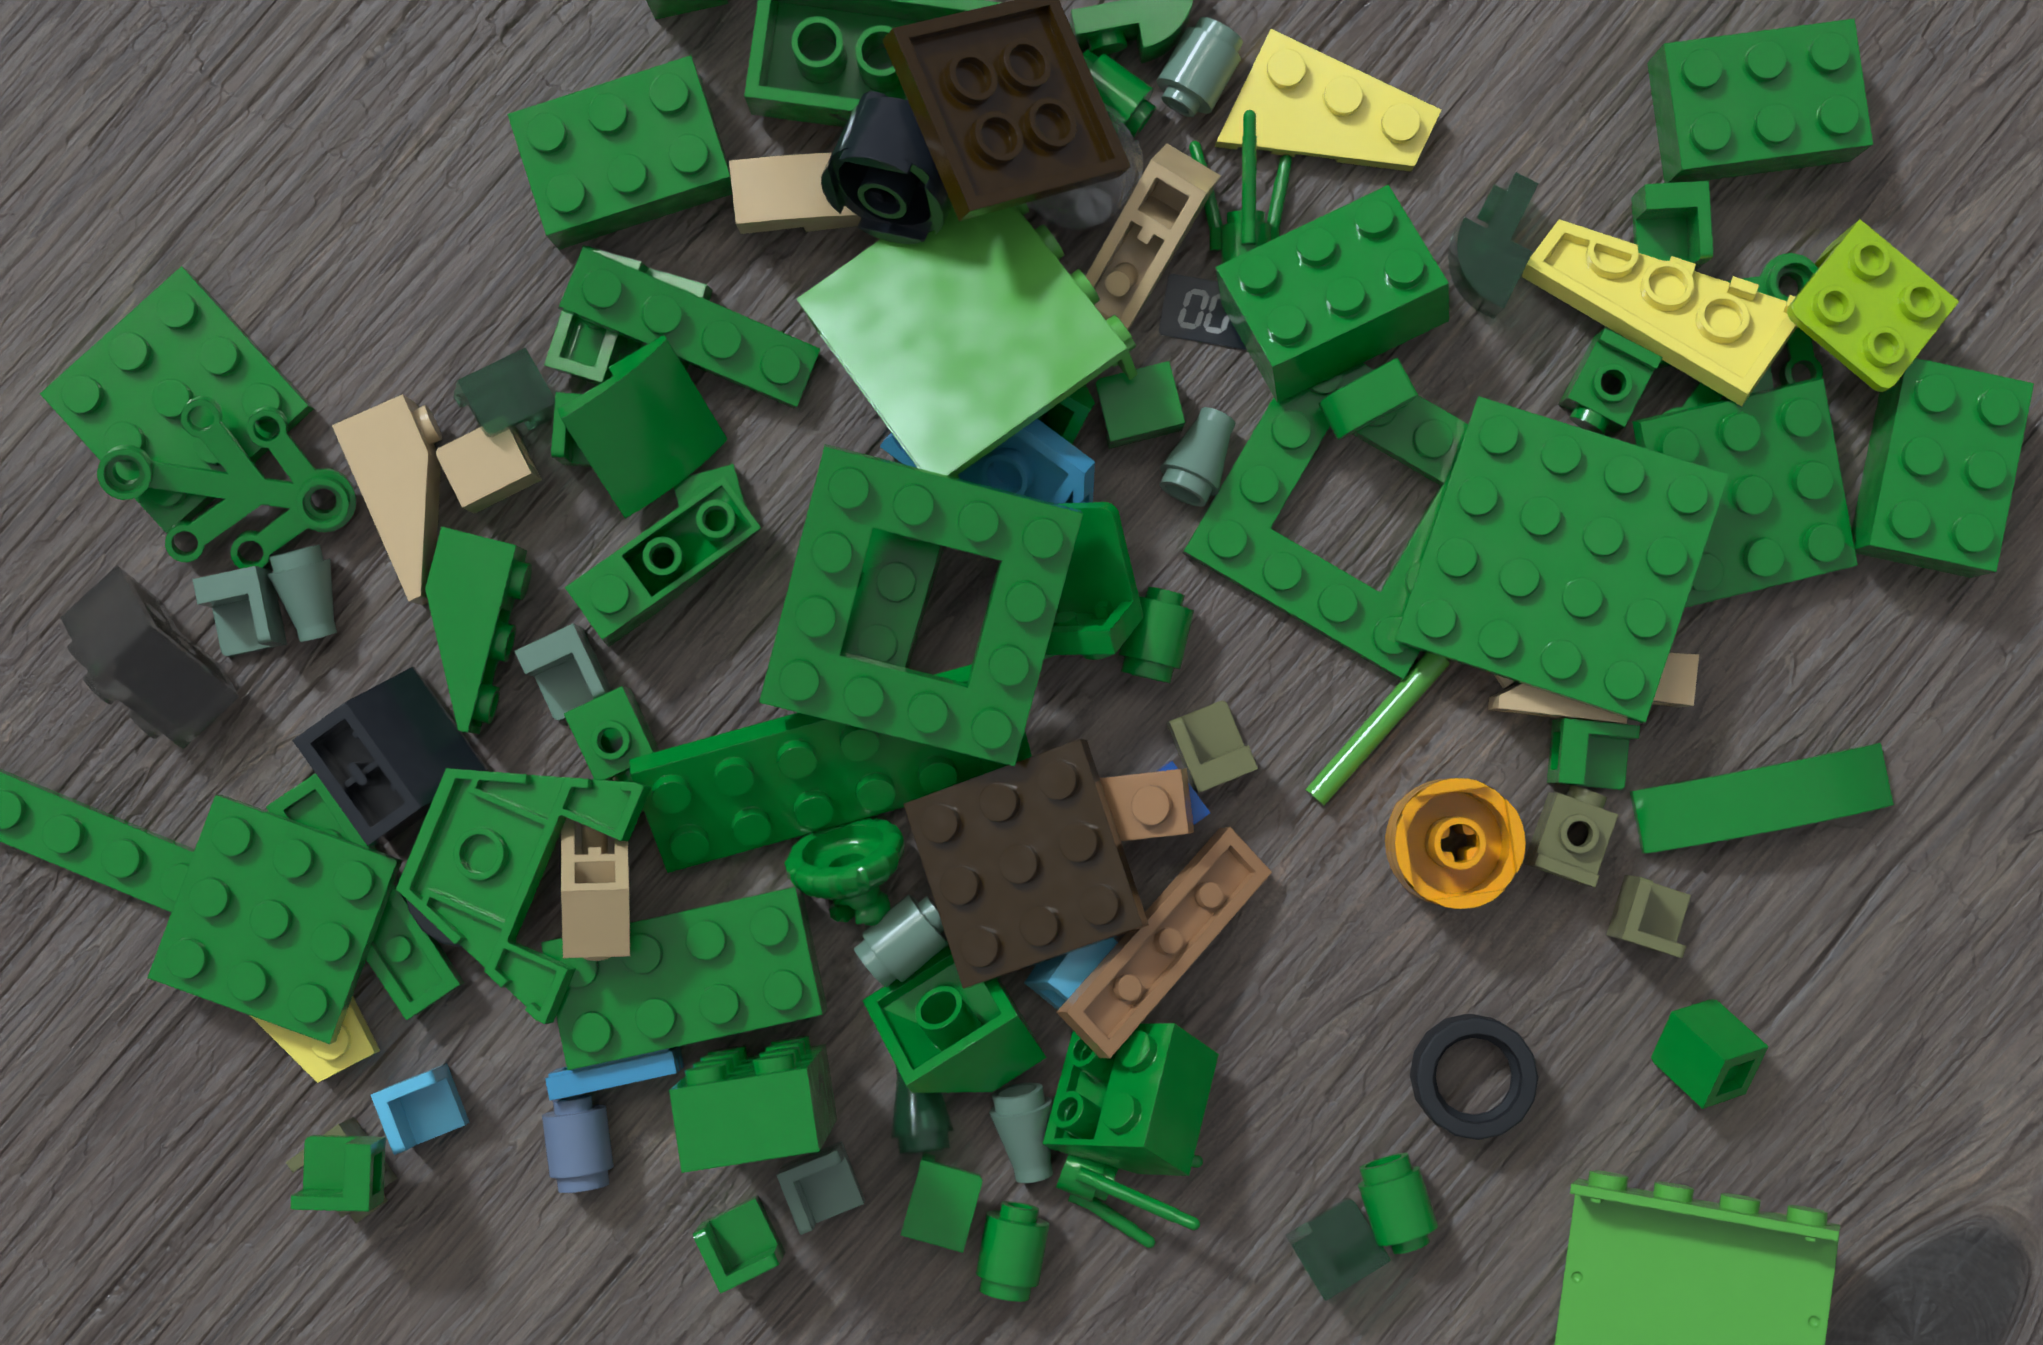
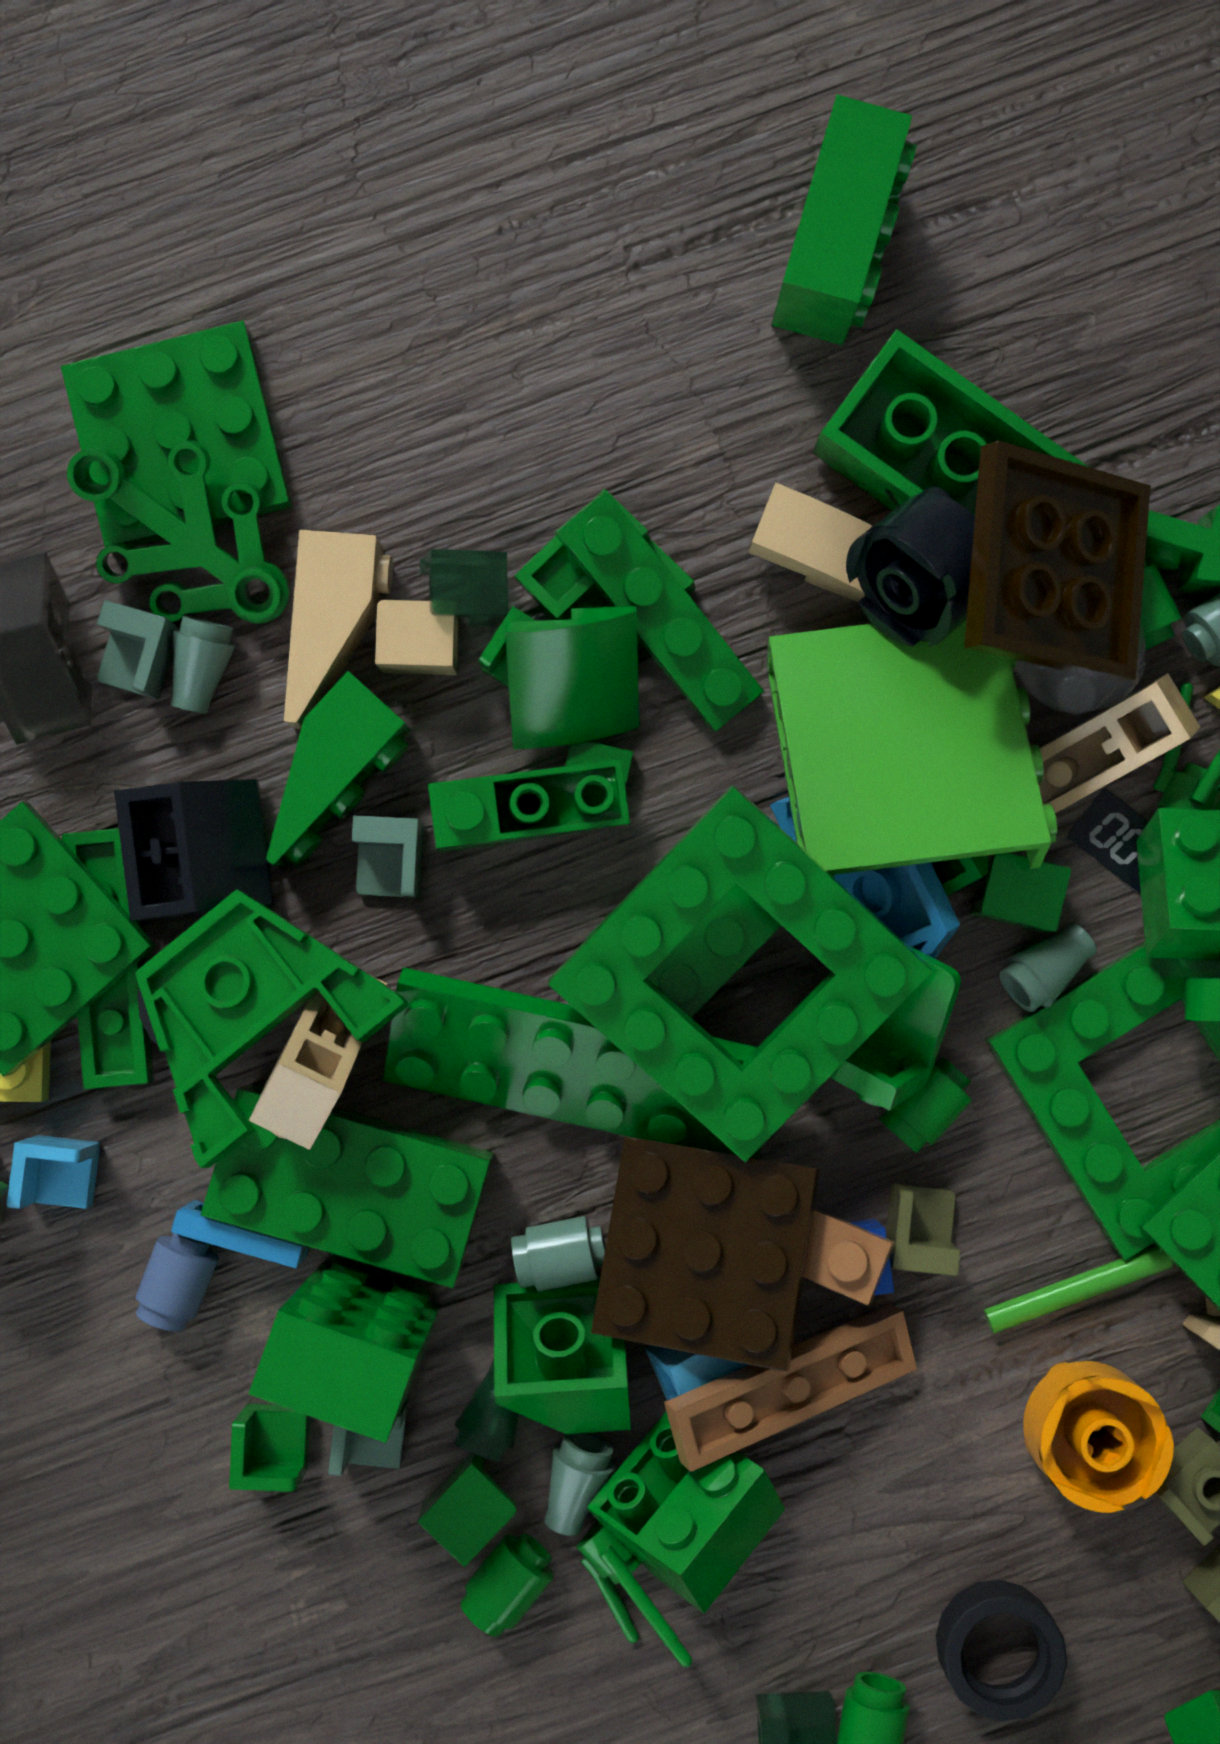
camera: 25 degrees right, 0 degrees up
(611, 733) = (399, 935): green brick -> none
(622, 153) = (683, 425): green brick -> none
(848, 867) = (546, 1164): green hair -> none

